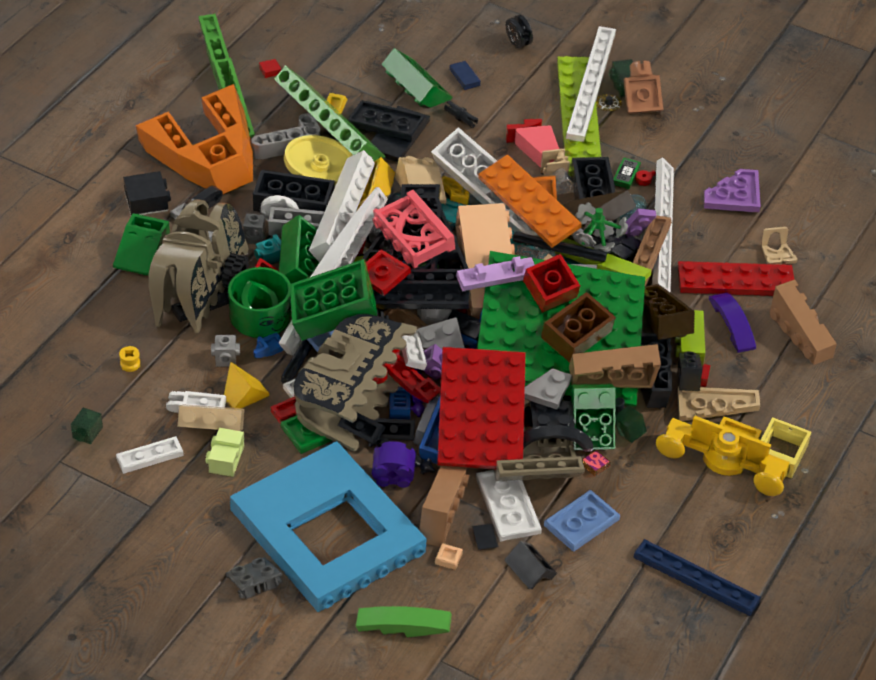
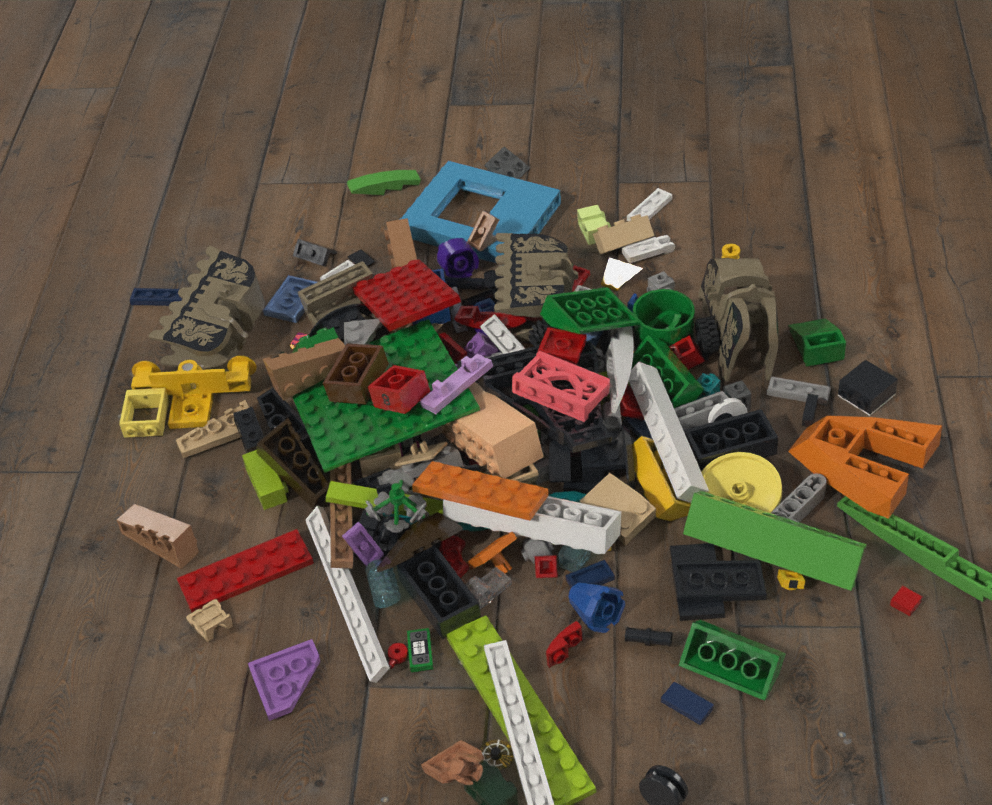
camera: 160 degrees right, 0 degrees up
(86, 425) = (711, 198): clear green brick -> none
(352, 463) = (482, 234): none -> medium nougat slope
(448, 556) = (378, 236): light nougat tile -> none
(486, 133) = (597, 605): none -> blue cone
(535, 140) = (530, 630): coral slope -> none
(561, 161) = (494, 601): tan piece -> none
(678, 496) = (212, 312): none -> dark tan animal
(705, 374) = (237, 444): red tile -> none
(736, 321) = (234, 520): dark purple slope -> none

